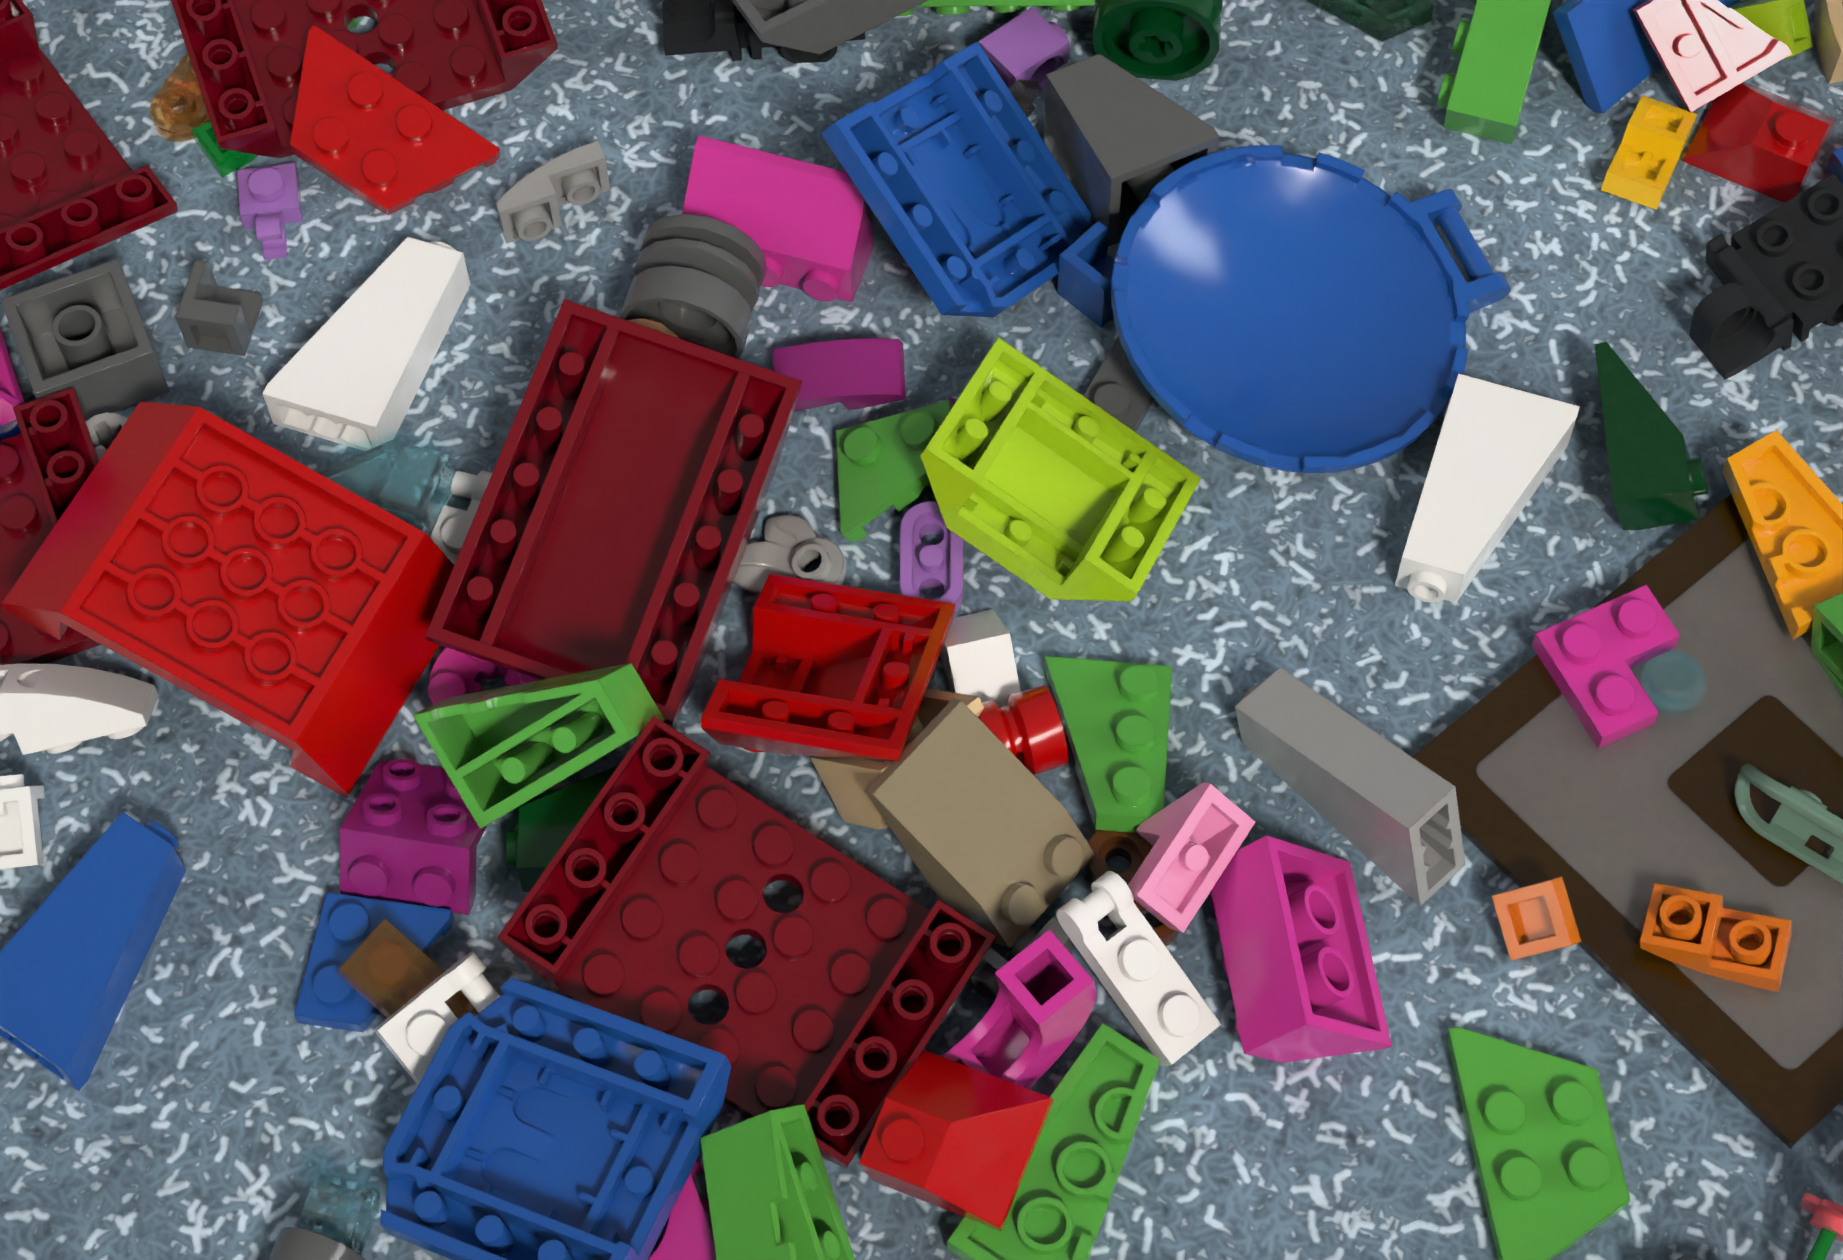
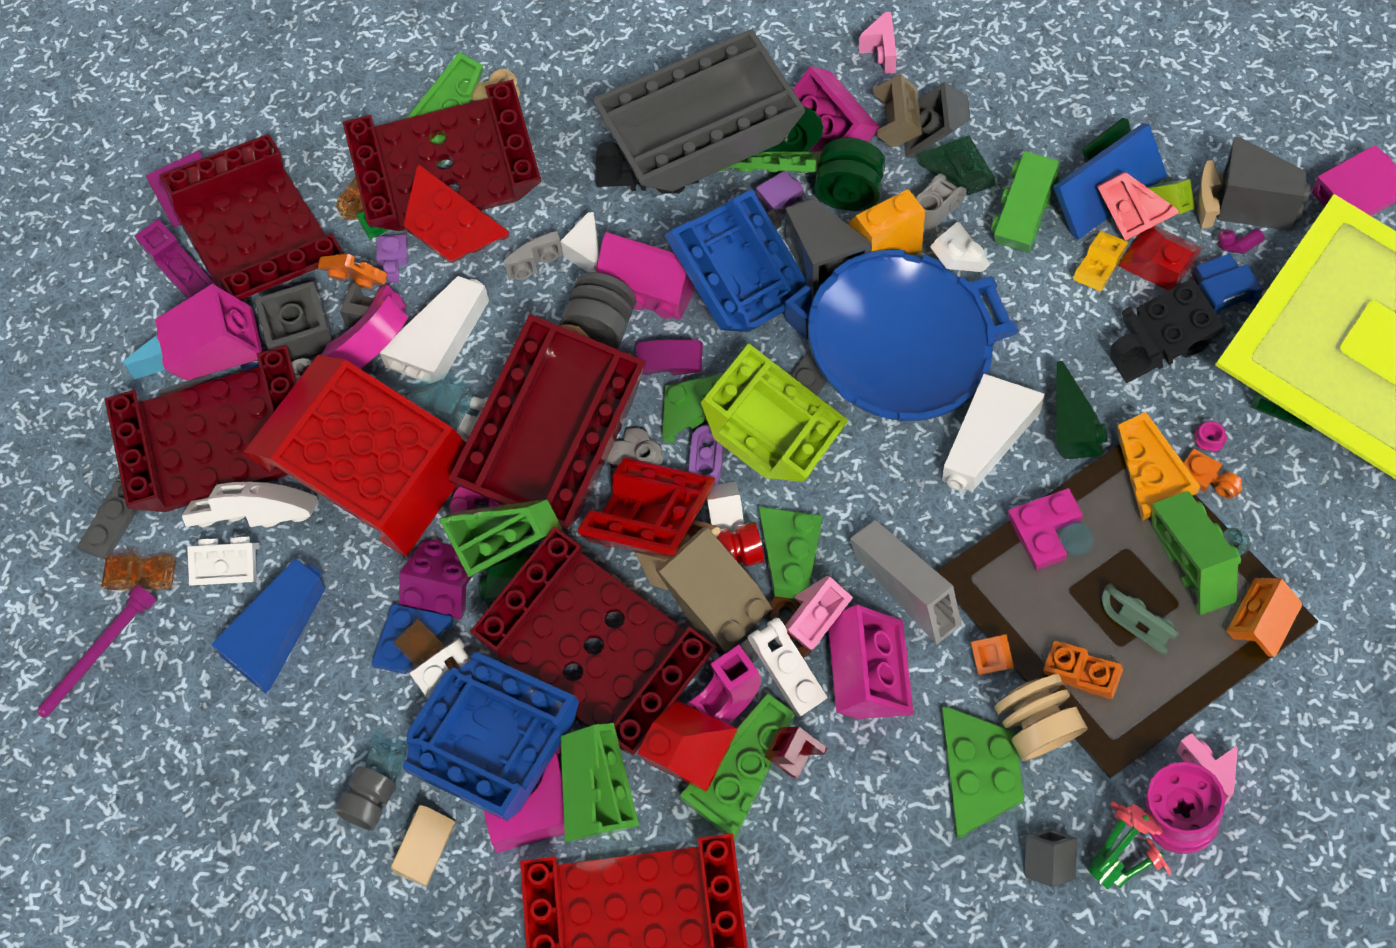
camera: 10 degrees right, 0 degrees up
(178, 229) = (343, 267): none -> orange wing
(245, 351) = (372, 331): none -> dark pink arch
(647, 166) = (581, 244): none -> white slope
(1162, 1131) = (792, 748): none -> panel
(1257, 95) = (893, 224): none -> light orange slope
(1327, 56) = (939, 200): none -> light grey piece
(1383, 145) = (959, 251): none -> white wing
(1649, 1035) = (1038, 713): none -> tan wheel

